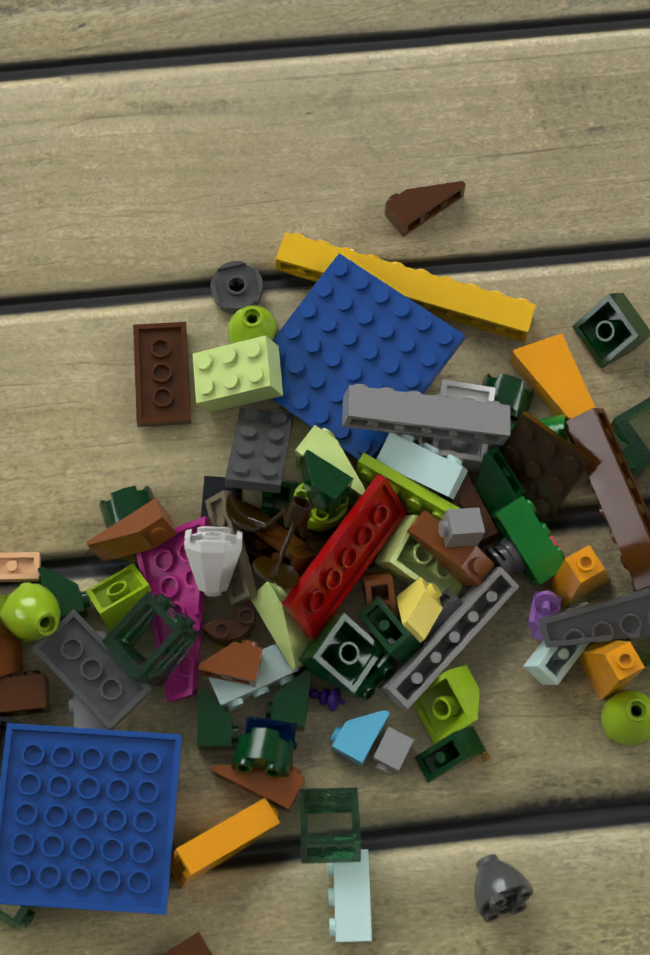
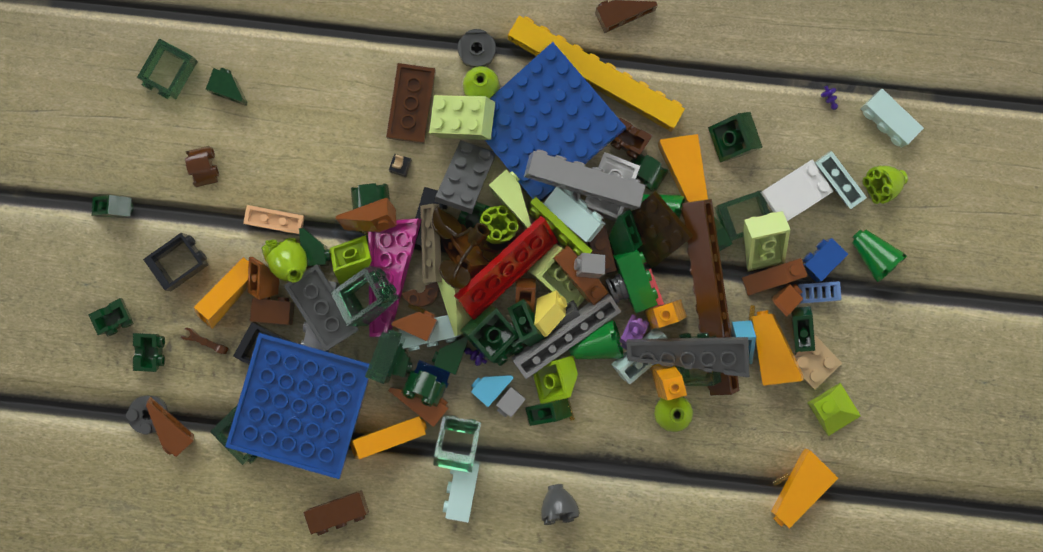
camera: 15 degrees right, 15 degrees up
(163, 457) = (400, 165): none -> black piece
(199, 715) = (385, 356): none -> clear green window
(213, 557) = (416, 249): white cone -> none
(324, 483) = (503, 214): dark green slope -> none
(474, 361) = (631, 140): none -> reddish brown cylinder
(498, 641) = (599, 344): none -> green cone

